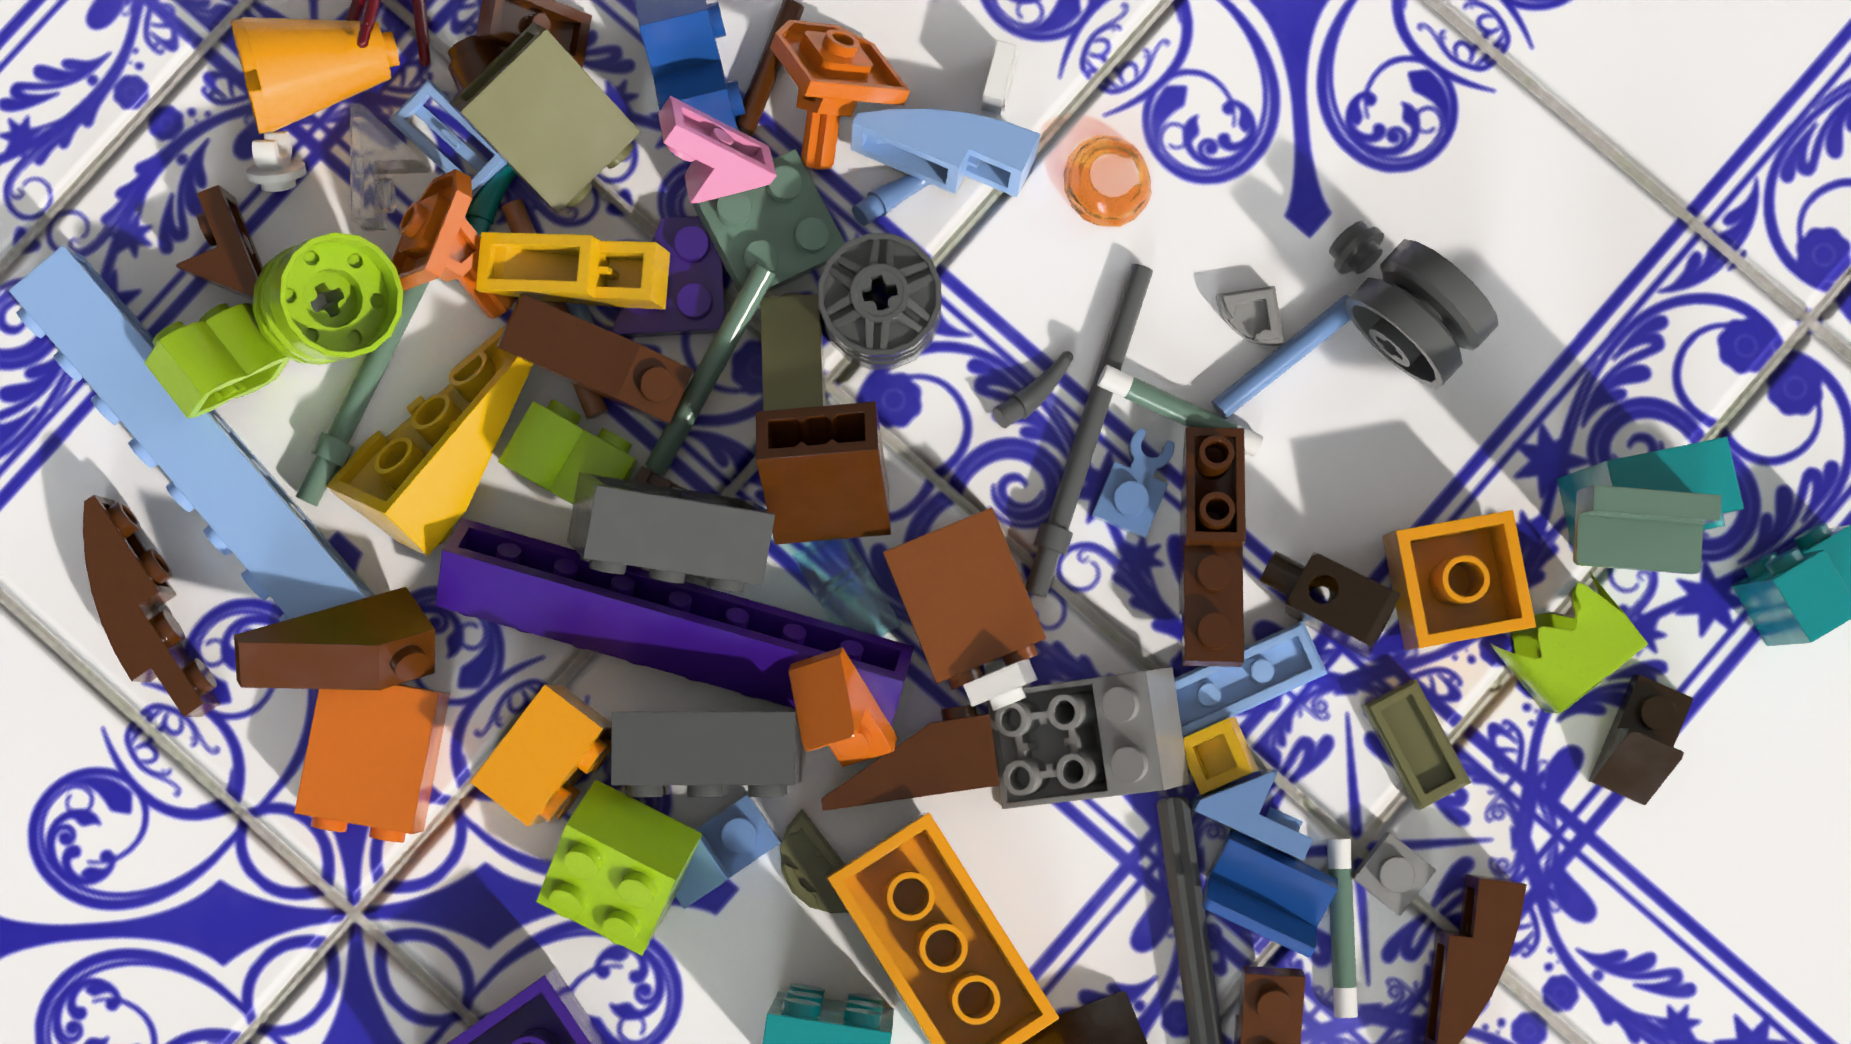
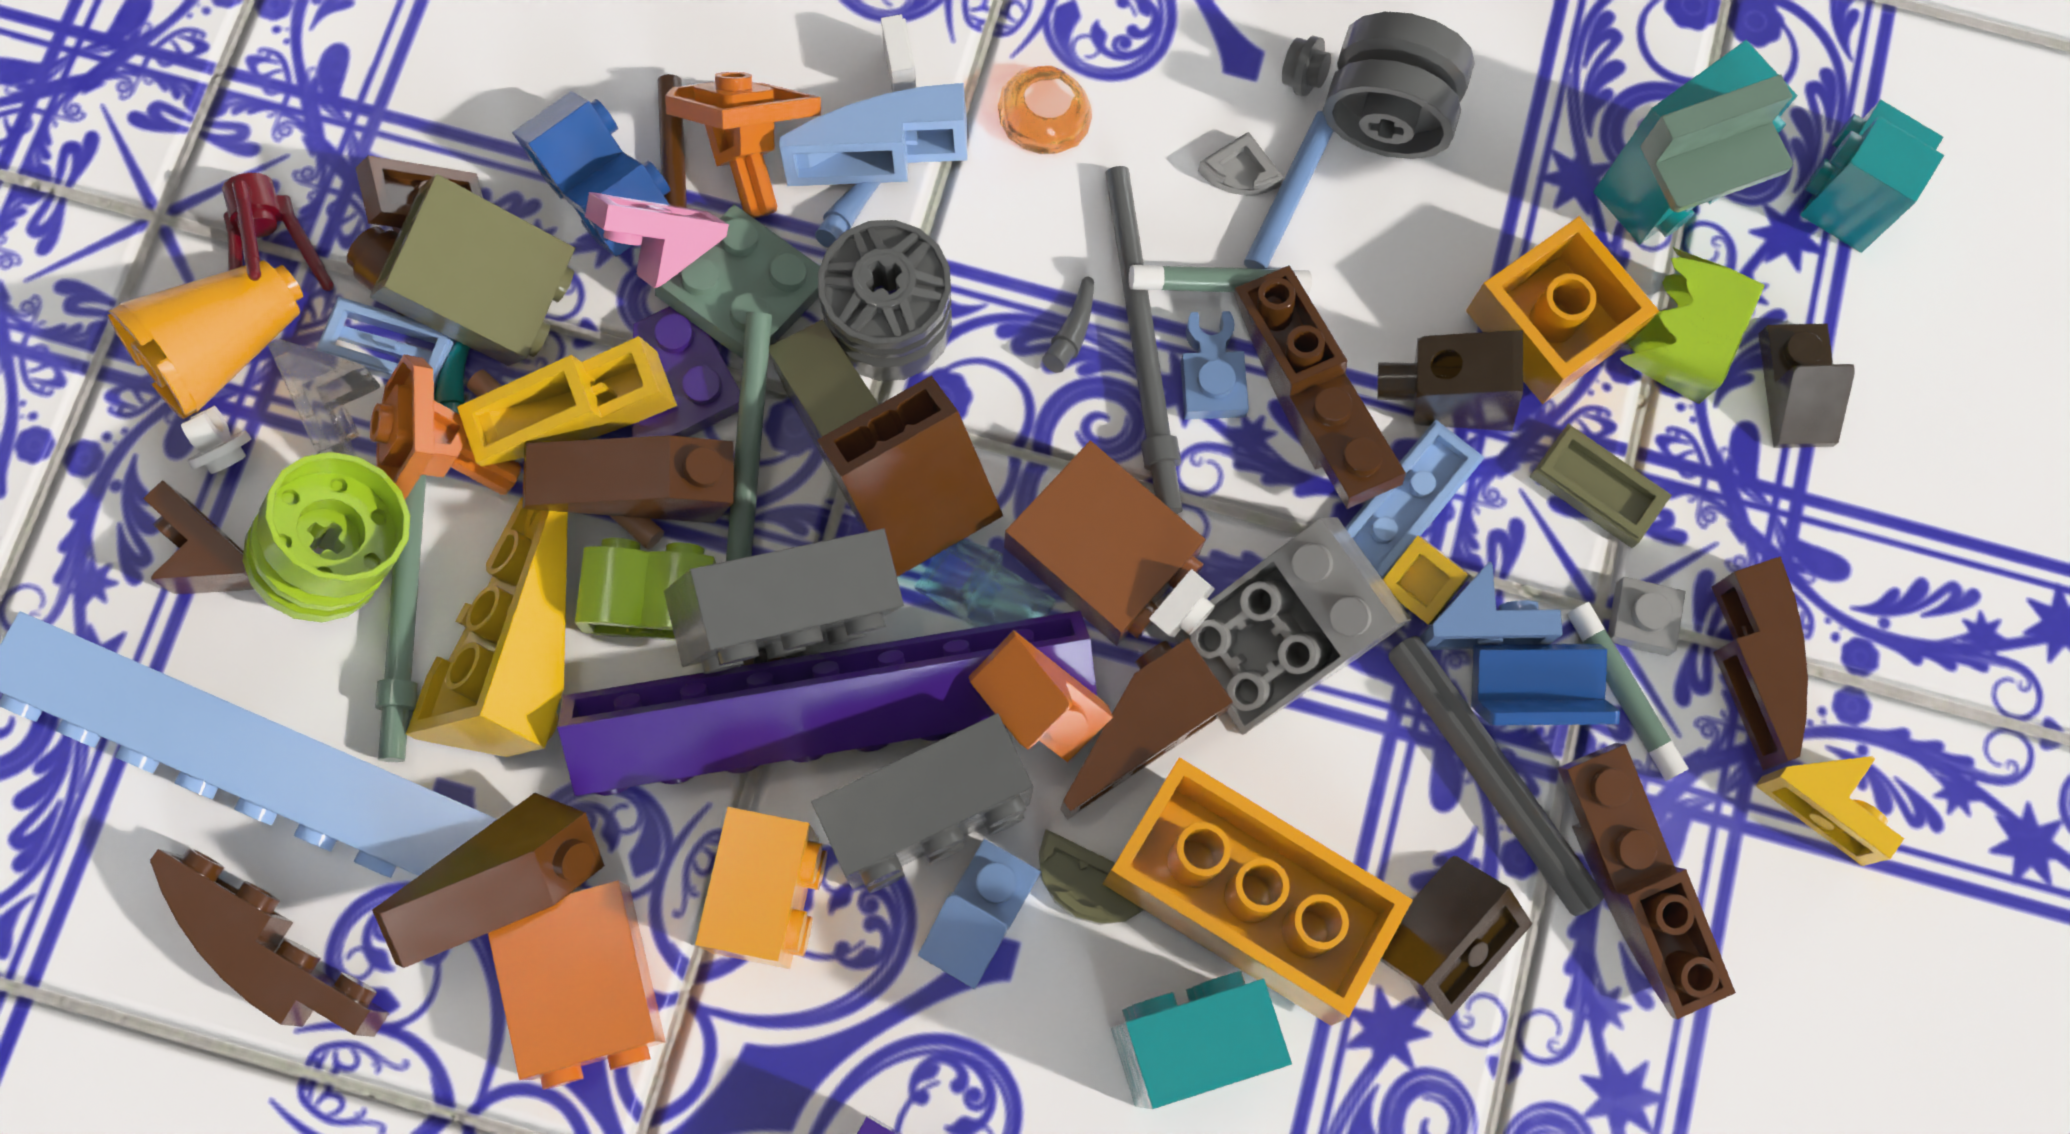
camera: 30 degrees left, 10 degrees down
(214, 359) = (232, 653): lime brick -> none
(618, 867) = (889, 968): lime brick -> none

